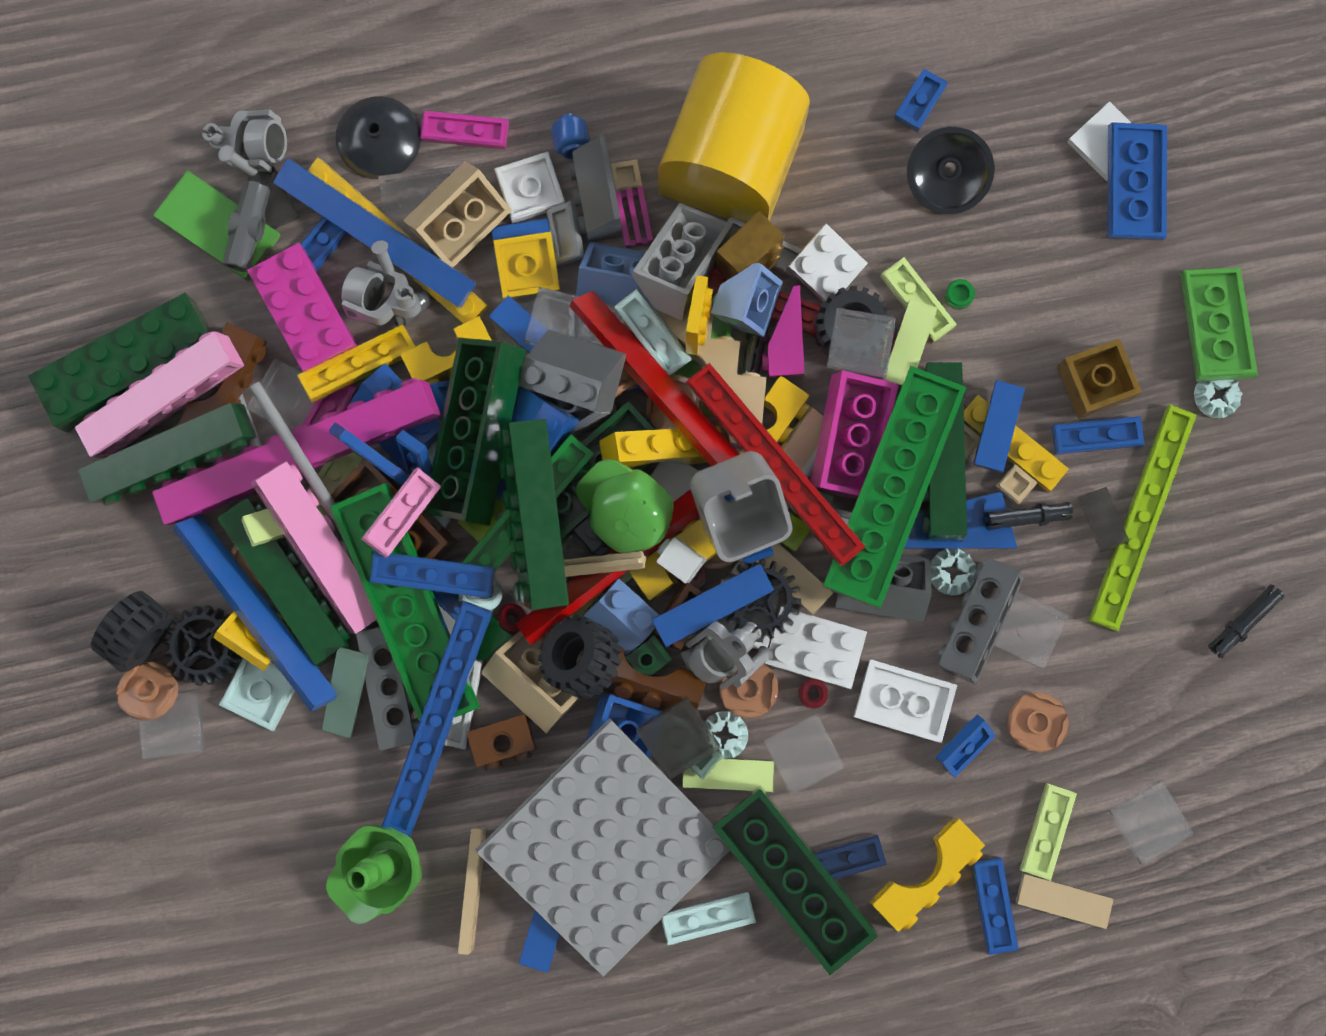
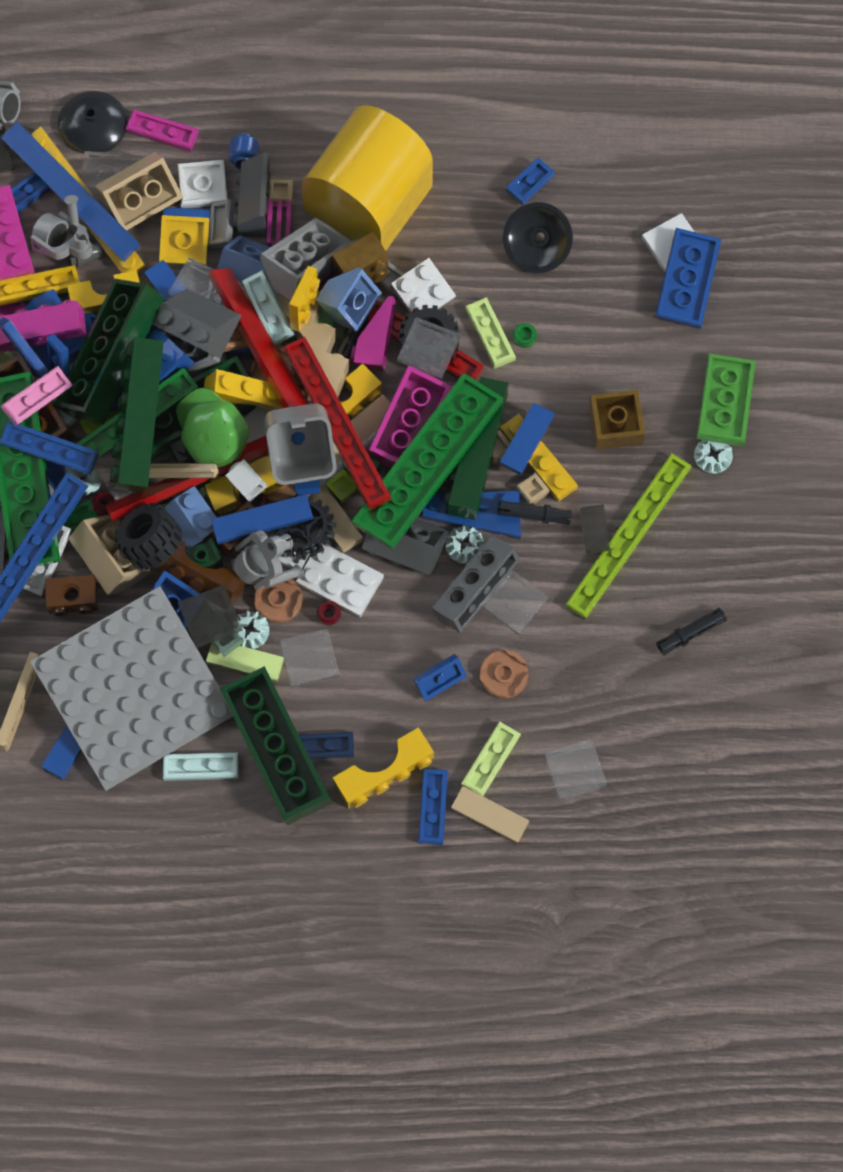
camera: 10 degrees right, 10 degrees down
(905, 701) = (400, 633): white plate -> none
(910, 340) = (475, 357): yellowish green tile -> none
(1097, 435) = (608, 465): blue tile -> none

